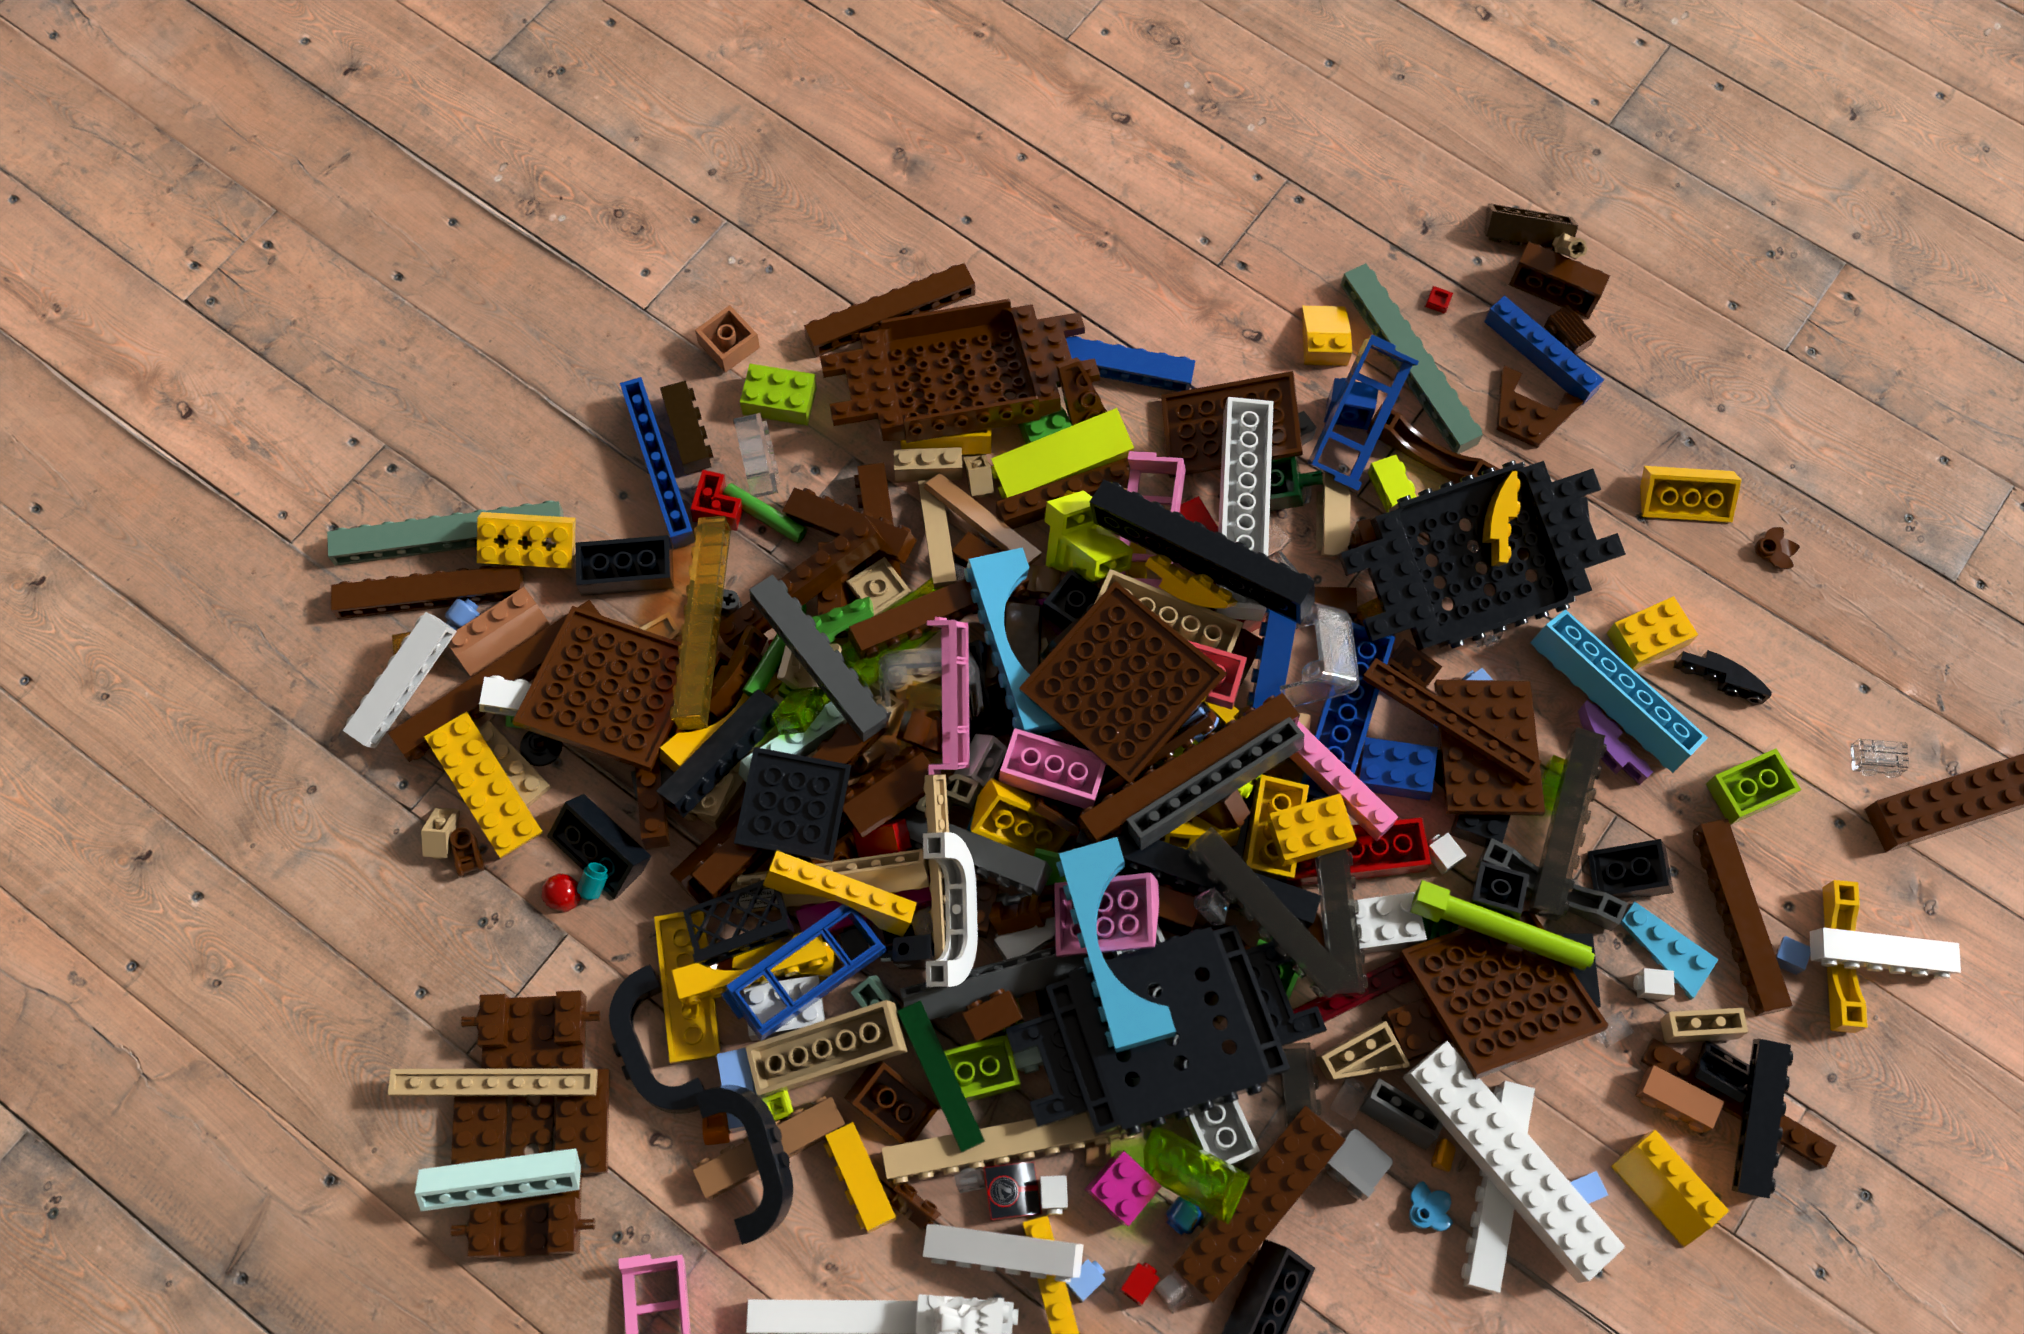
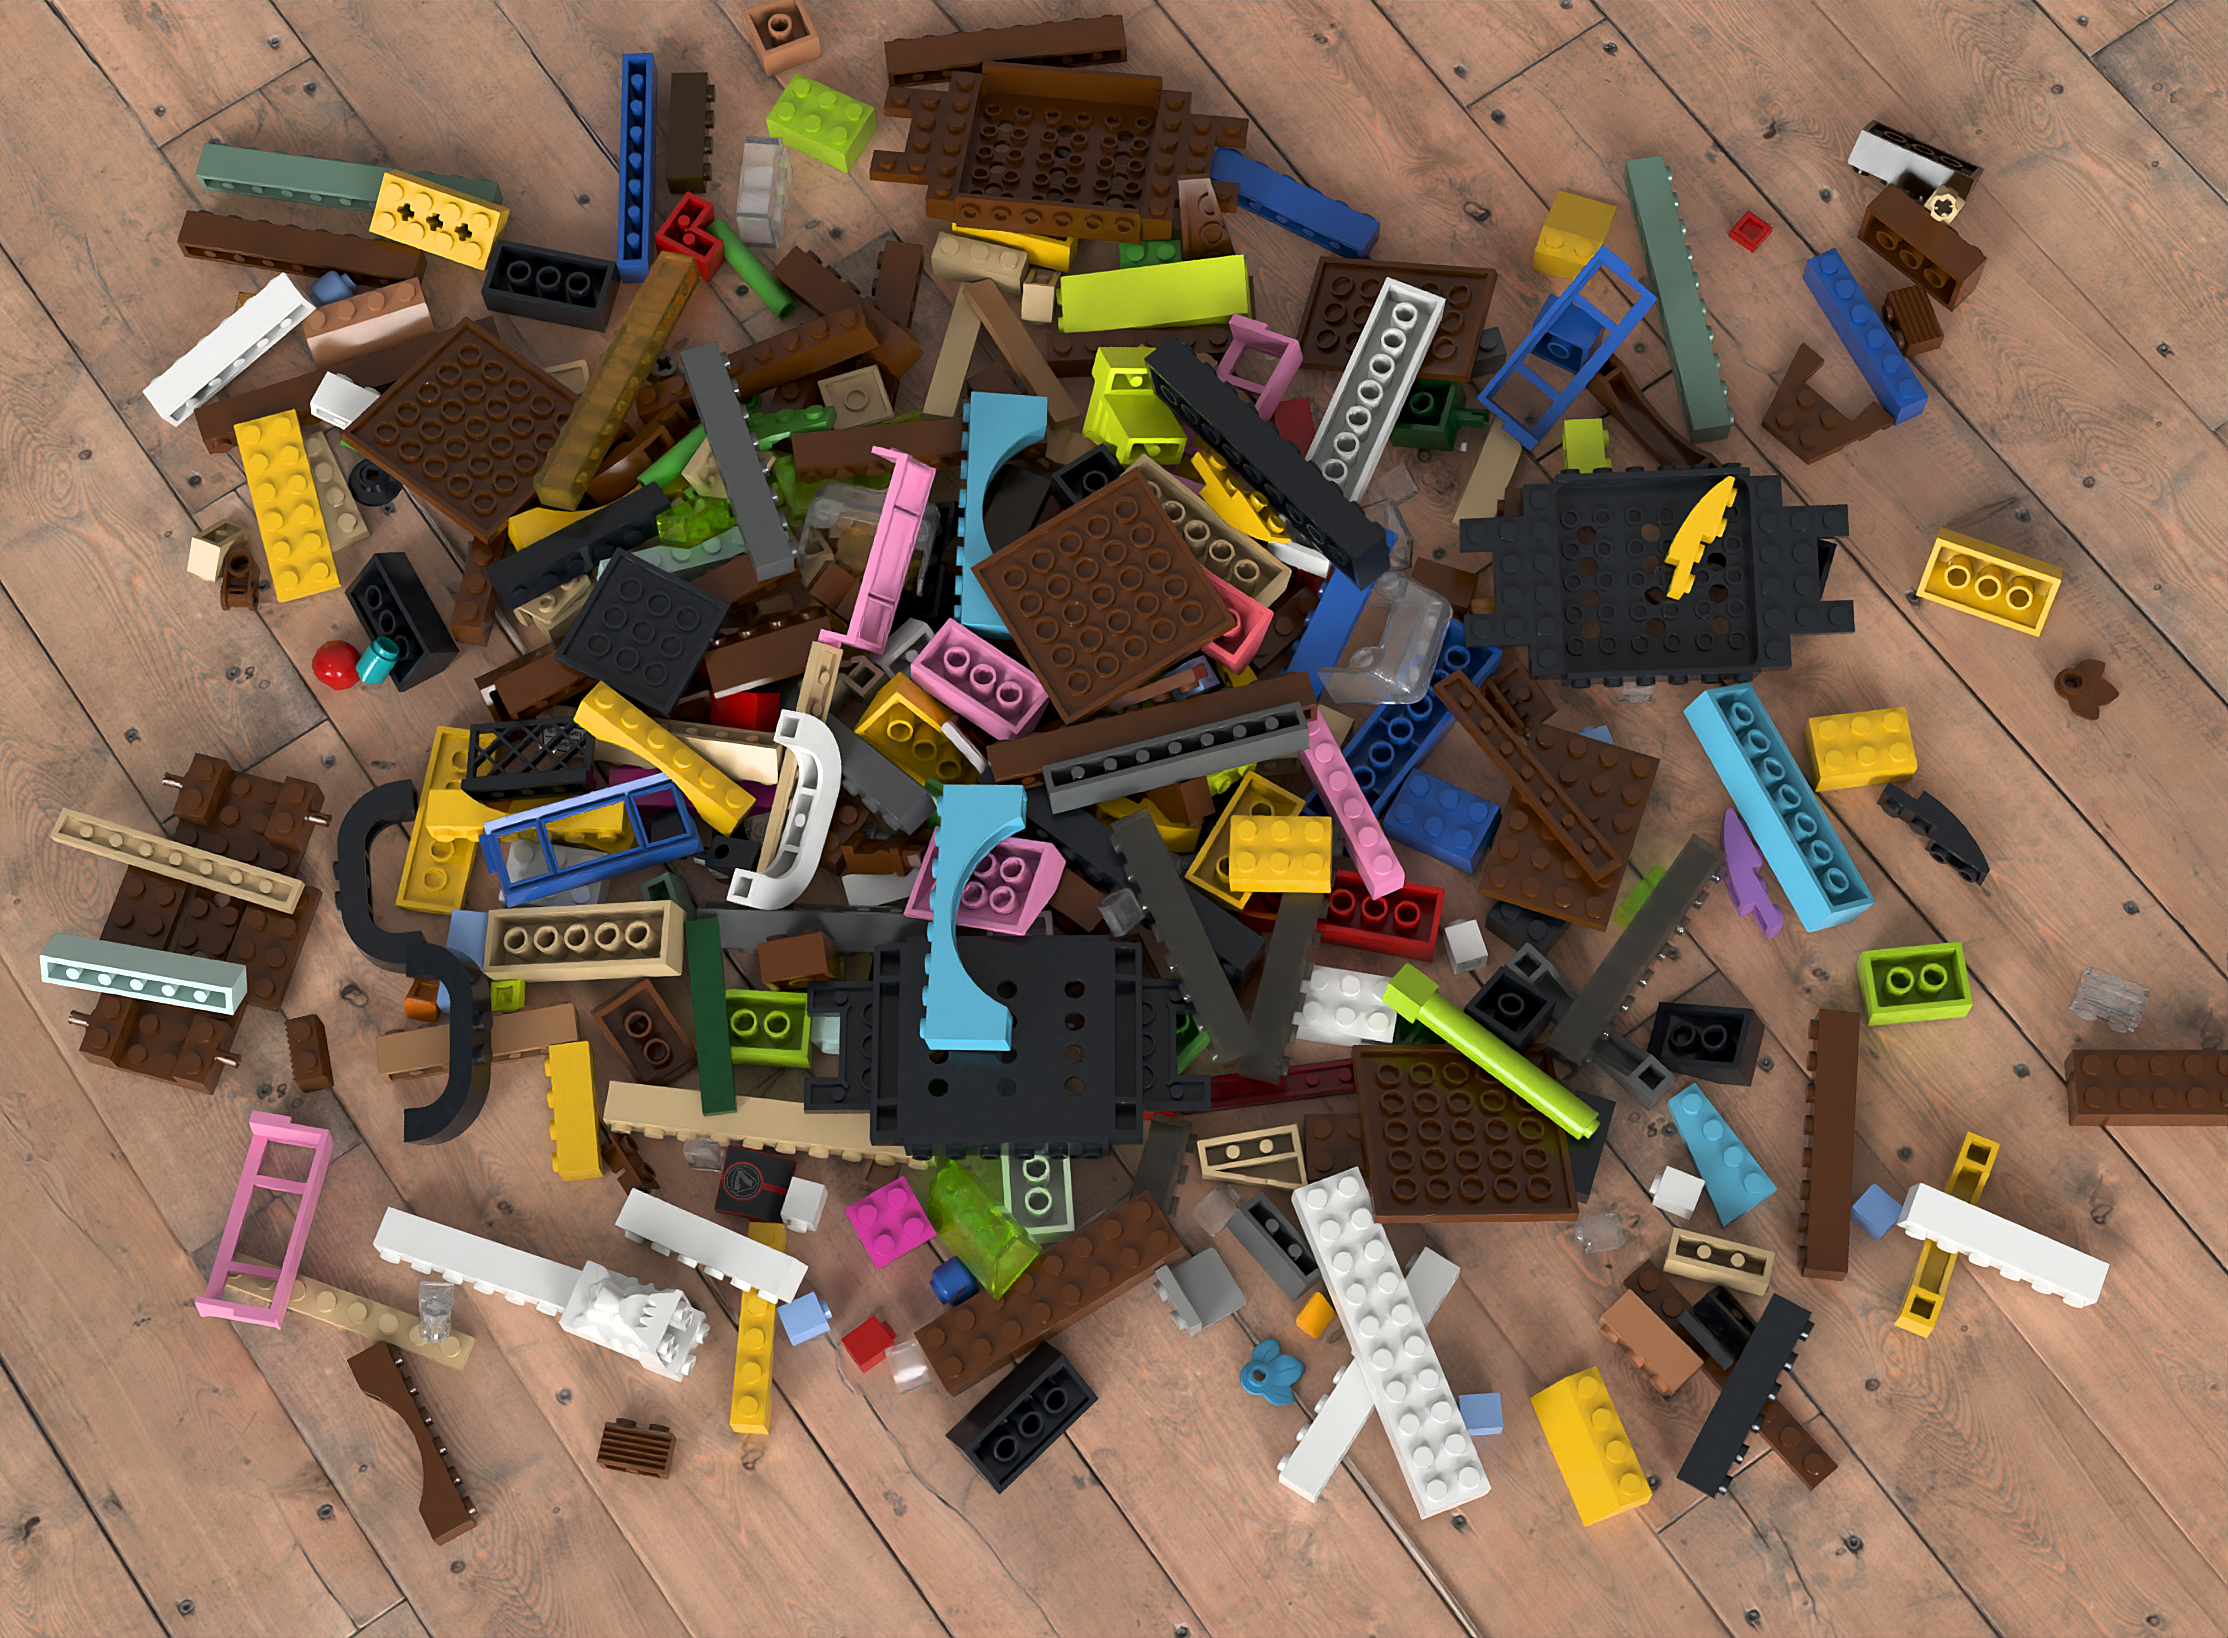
camera: 25 degrees right, 0 degrees up
(644, 1198) = (309, 1053): none -> reddish brown brick

